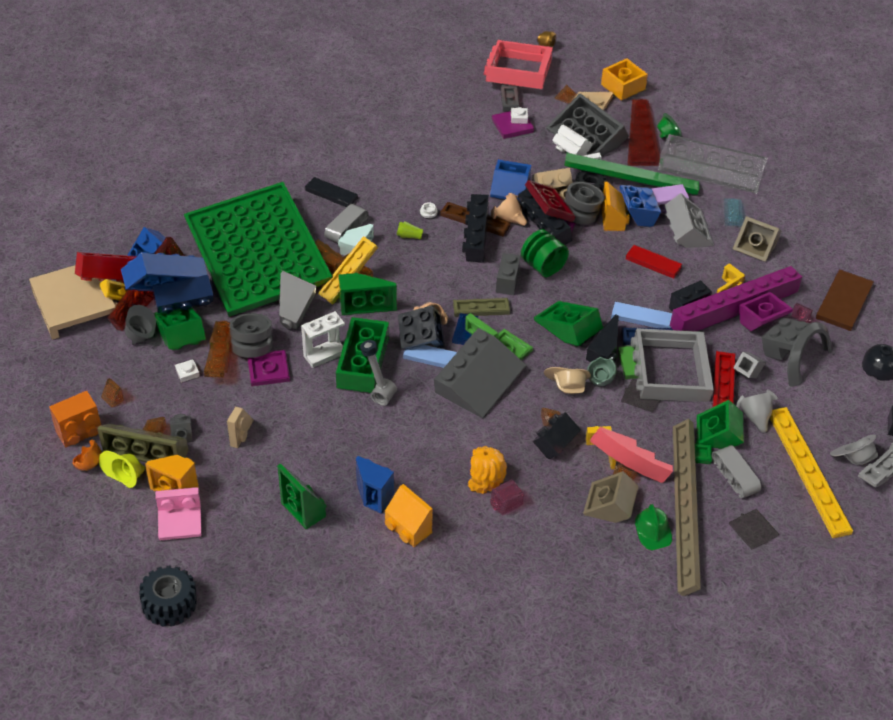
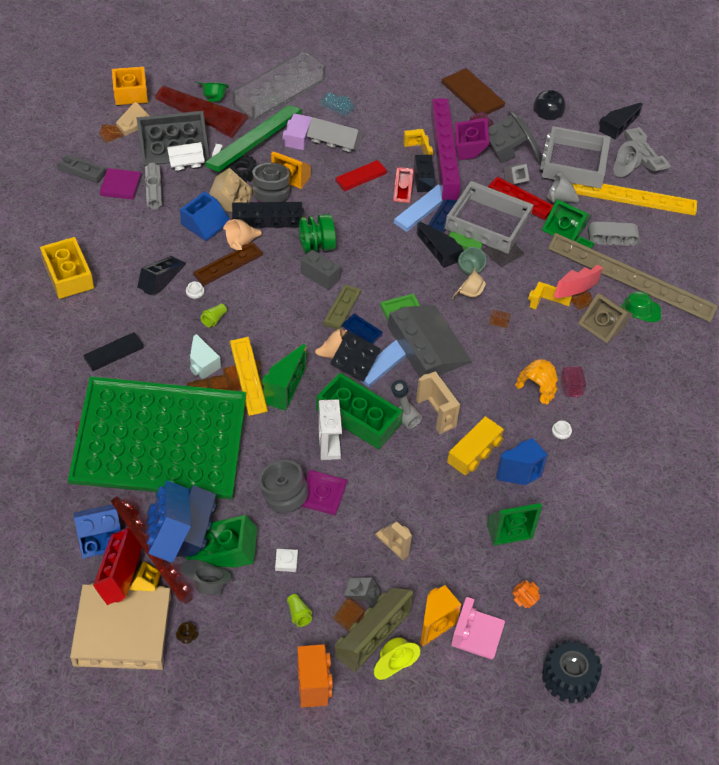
camera: 65 degrees left, 5 degrees up
(87, 337) = (186, 627): none -> dark brown plate
(88, 458) = (362, 684): orange hair -> none
(112, 393) = (283, 635): clear orange slope -> none
(140, 394) = (300, 613): none -> lime cone
(220, 351) = (278, 521): clear orange slope -> none
(233, 537) = (526, 594): none -> orange gear
(294, 300) = (259, 434): light grey slope -> none
(348, 219) = (171, 356): light grey beam -> none
(380, 449) = (475, 446): none -> yellow brick
(391, 129) = (66, 267): none -> yellow brick
(400, 411) = (437, 393): none -> tan panel
(409, 516) = (568, 453): light orange slope -> none
(427, 182) = (159, 274): none -> black slope
(443, 509) = (561, 430): none -> white plate
(474, 323) = (379, 316): bright green tile -> none
(477, 228) = (252, 264): black brick -> none
(518, 51) = (83, 140): coral window -> none
(519, 115) = (119, 173): white plate -> none
(523, 140) = (153, 186): none -> light grey piece
(547, 39) = (28, 109): pearl gold cone -> none
(550, 201) = (260, 198): dark red tile -> none
(556, 435) = (527, 320): black brick -> none
(570, 322) = (400, 256): green slope -> none
(641, 204) = (299, 148): blue slope -> none
(661, 290) = (403, 185): none -> slope
(753, 529) = (667, 252): clear smoke piece -> none
(757, 239) = (381, 104): dark tan slope -> none
(827, 428) = (581, 140): none -> light grey window

